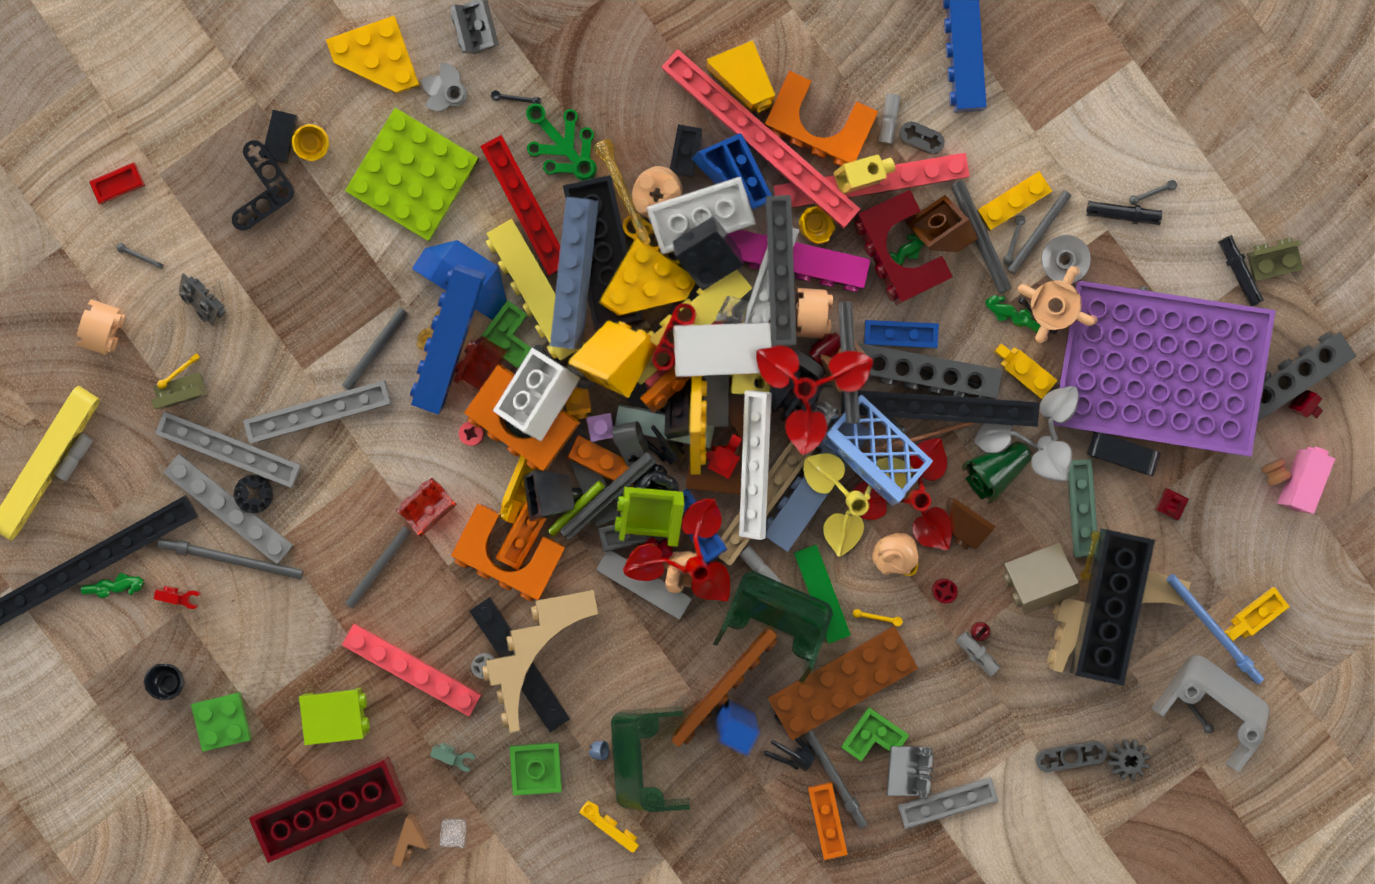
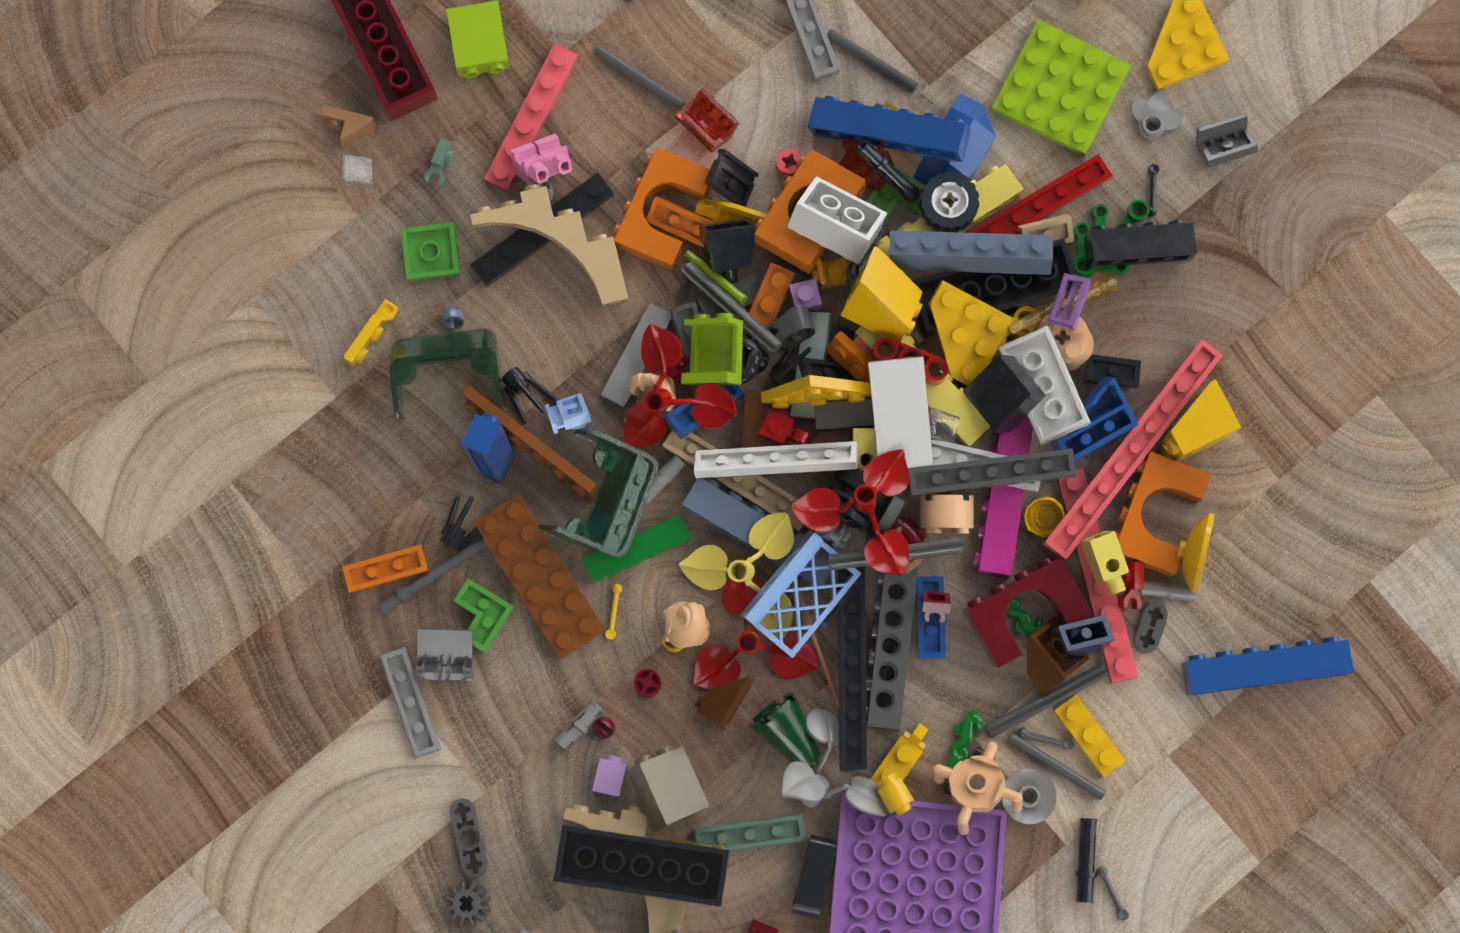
camera: 85 degrees right, 10 degrees down
(459, 658) = (541, 160): none -> bright pink hips
(484, 350) = (880, 164): none -> black pin
(484, 488) = (731, 178): none -> black plate
(519, 274) = (938, 213): none -> black wheel
(551, 199) = (1057, 226): none -> tan plate
(570, 115) = (1140, 244): none -> black brick
(609, 169) = (1063, 322): none -> medium lavender tile
(663, 695) = (517, 382): none -> black plant
(697, 650) = (568, 413): none -> light blue plate
(861, 92) = (1195, 551): none -> yellow dish
(884, 150) = (1134, 583): none -> red plate
(892, 329) = (935, 603): none -> tile
(930, 198) = (1085, 636): none -> dark blue slope
(1026, 628) = (610, 776): none -> lavender brick
(1060, 378) = (894, 794): none -> yellow brick

